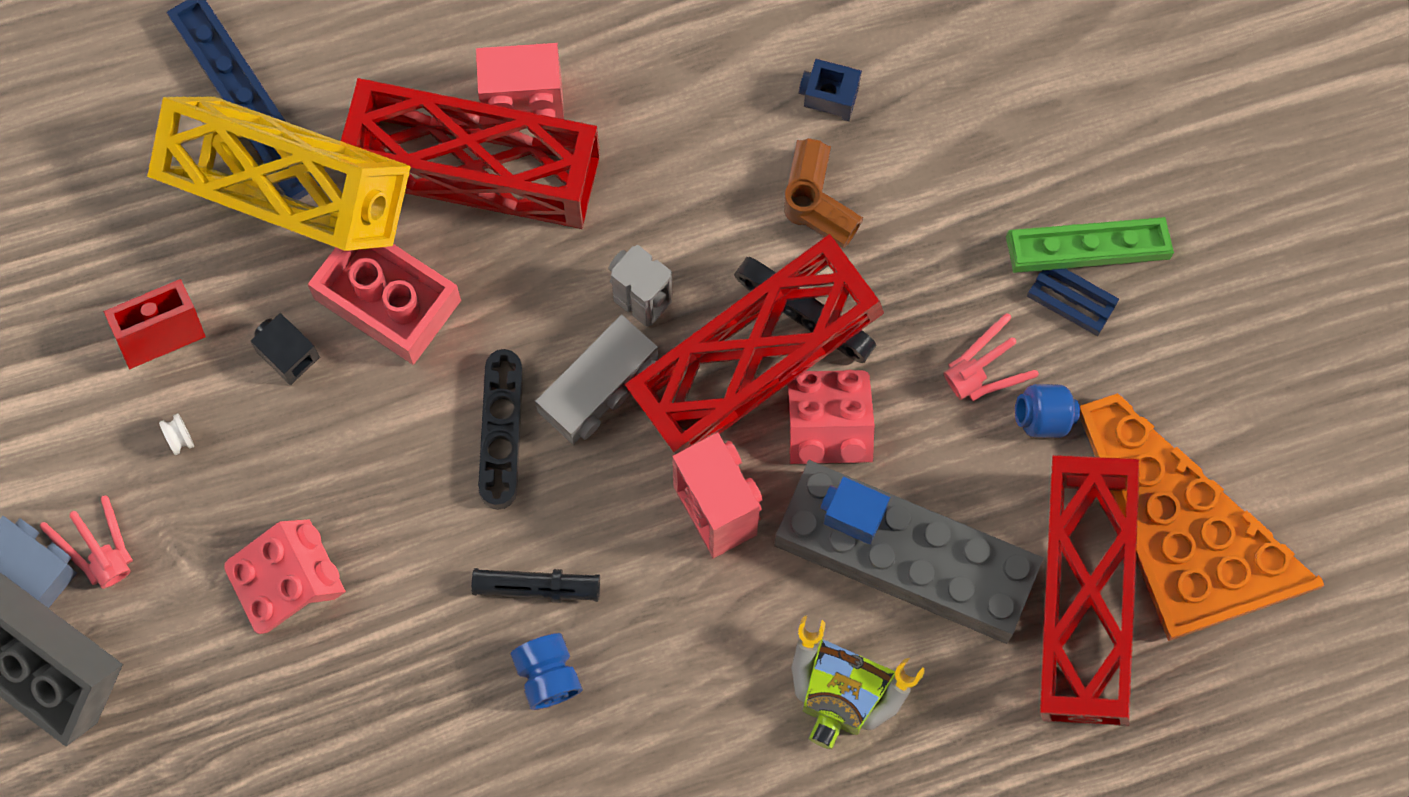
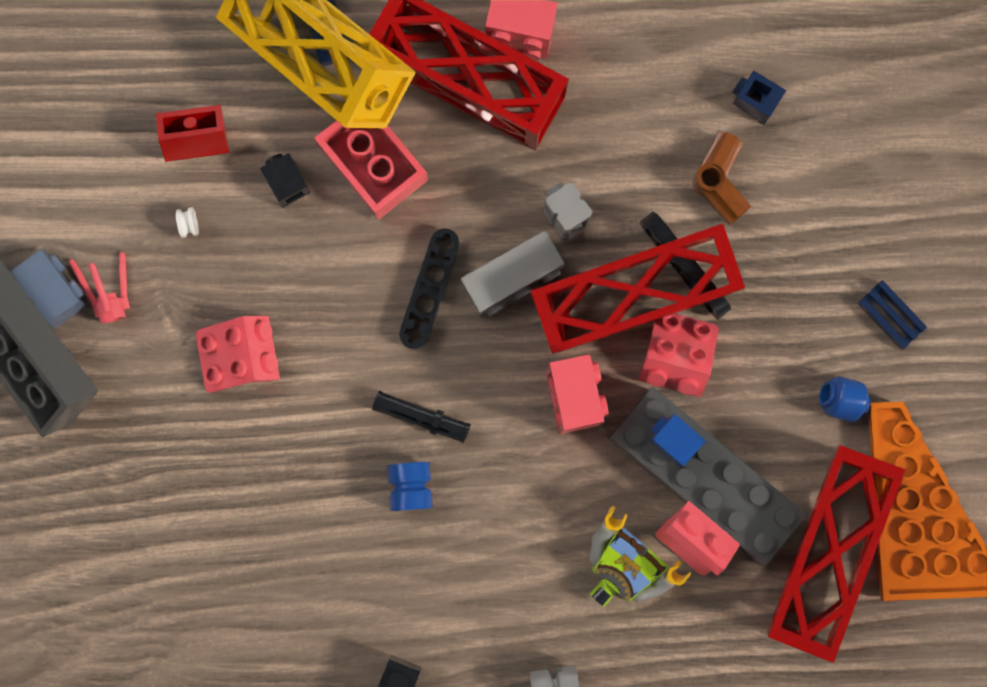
camera: 15 degrees right, 10 degrees up
(919, 629) = (697, 540): none -> coral bracket
(967, 376) = (792, 354): coral plant -> none
(1089, 244) = (918, 278): bright green tile -> none

